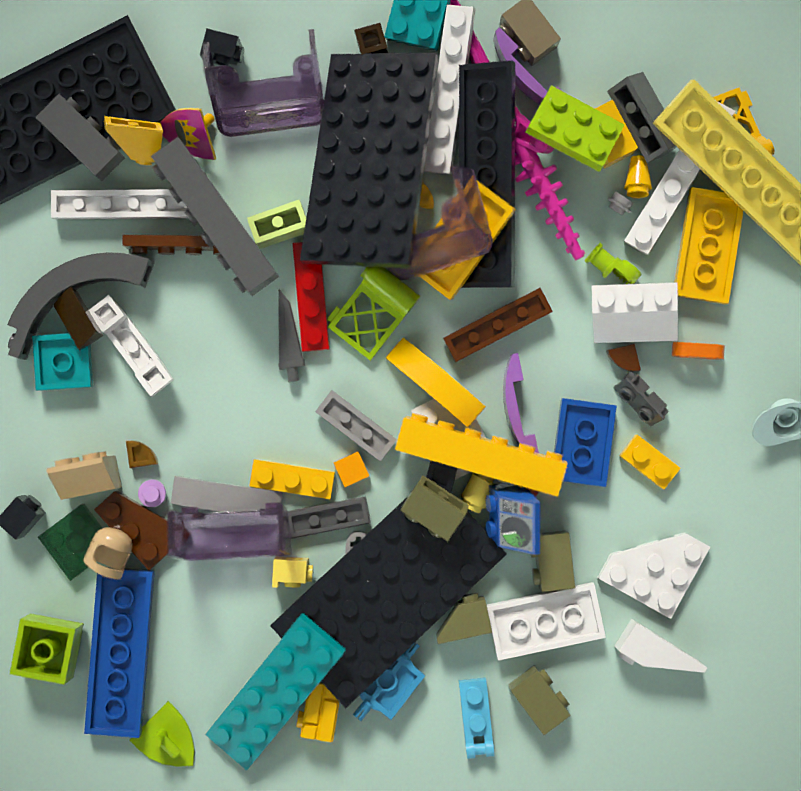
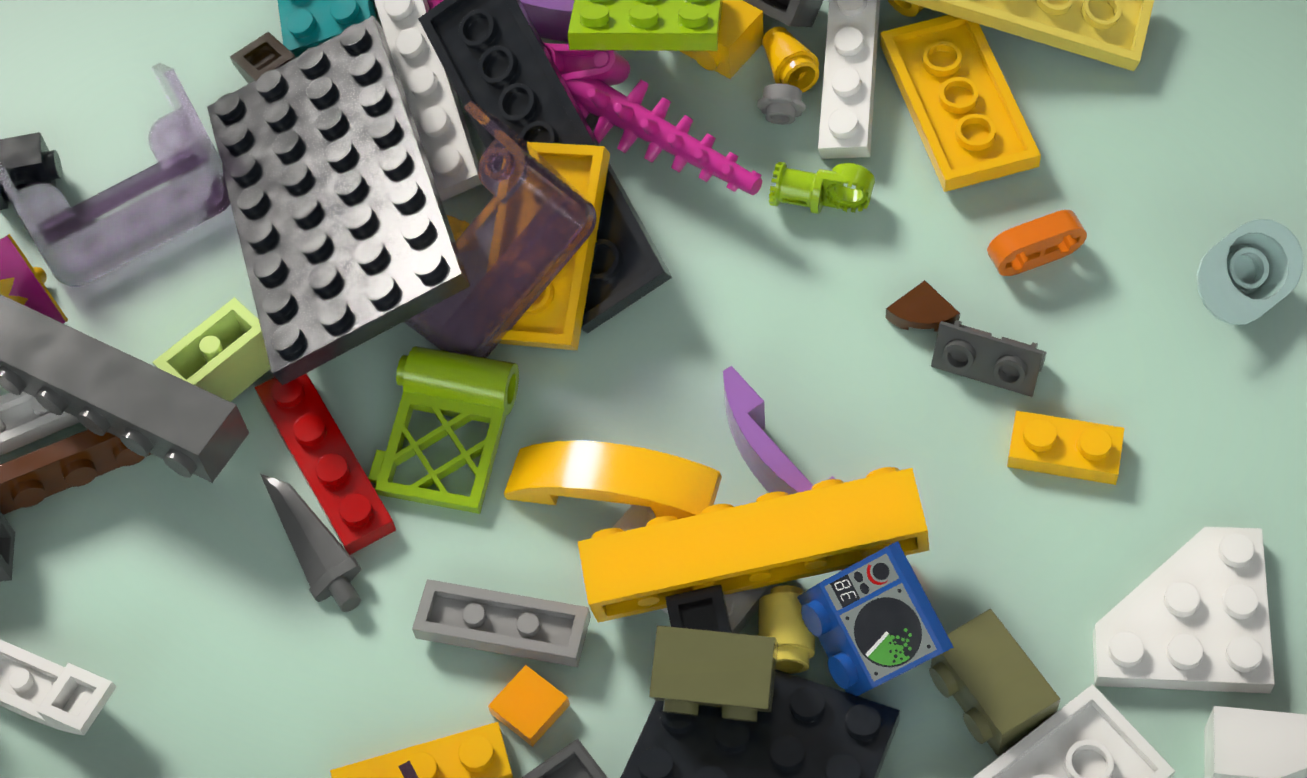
camera: 15 degrees left, 30 degrees down
(497, 324) = (674, 355): reddish brown plate -> none
(585, 440) = (937, 440): blue plate -> none
(635, 313) = (895, 226): white slope -> none

